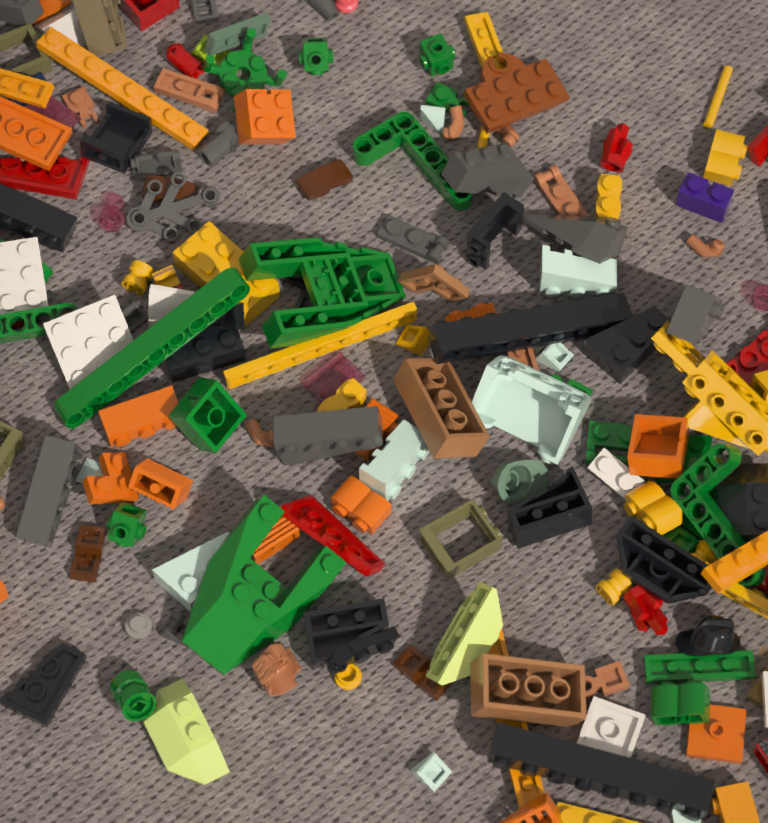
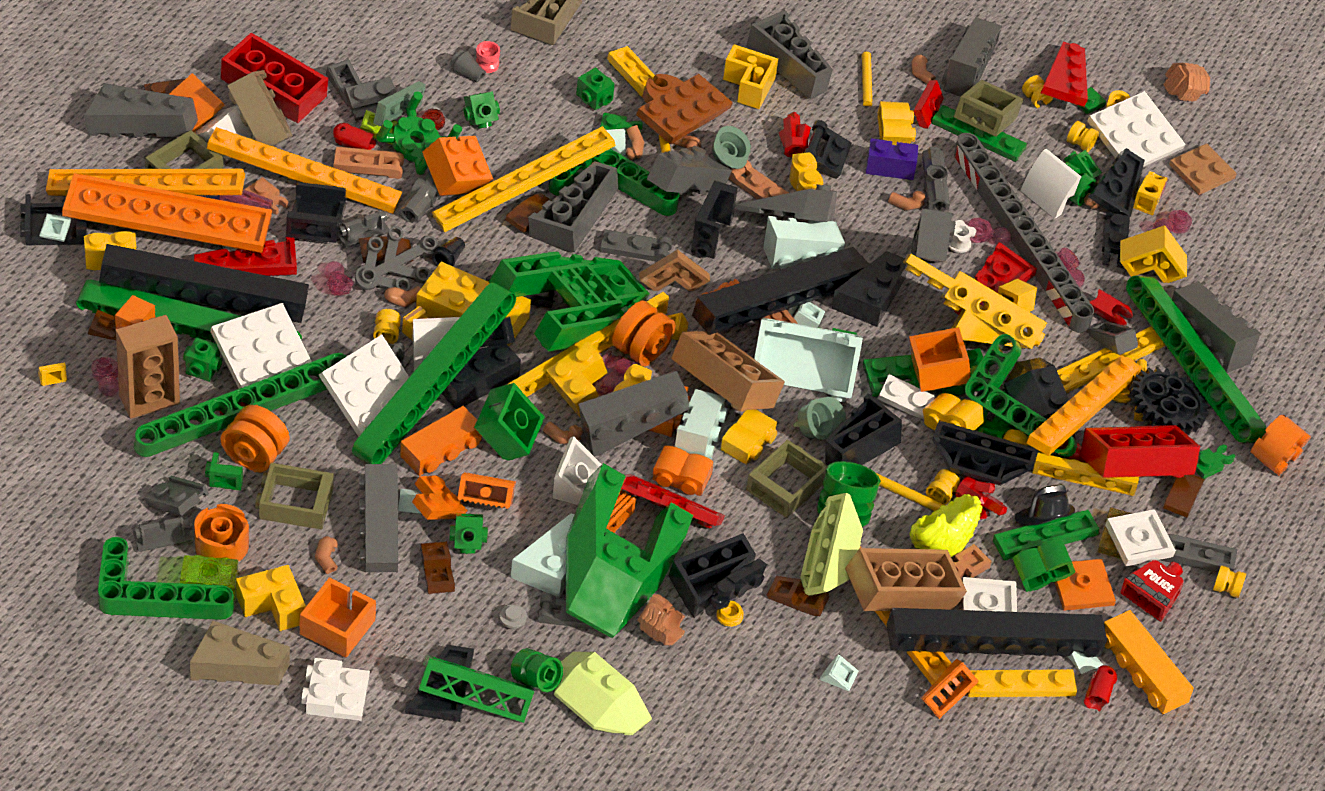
camera: 25 degrees left, 15 degrees down
(68, 690) = (479, 678): none -> green fence
(164, 246) = (401, 297): none -> nougat arm
(216, 16) = (367, 95): none -> dark grey plate
(226, 208) = (448, 251): none -> black cone
(256, 479) = (573, 472): none -> white slope
(270, 49) = (437, 116): none -> clear red plate
(291, 376) = (576, 374): none -> yellow brick
(326, 143) = (523, 179): none -> yellow tile
(367, 187) = (576, 209): none -> dark grey wedge
(375, 345) = (643, 333): none -> orange wheel
(441, 481) = (749, 435): none -> yellow brick
(513, 572) = (854, 480): none -> green wheel
(544, 151) = (731, 147): none -> sand green piece
(578, 583) = (909, 493): none -> yellow bar
(595, 638) = (948, 526): none -> neon yellow hair
(599, 69) = (753, 73): none -> yellow brick
(645, 53) = (796, 58): none -> dark grey wedge
(648, 177) = (833, 152): none -> black plate
(738, 241) = (935, 179): none -> dark grey piece
(741, 302) = (961, 239): none -> white brick

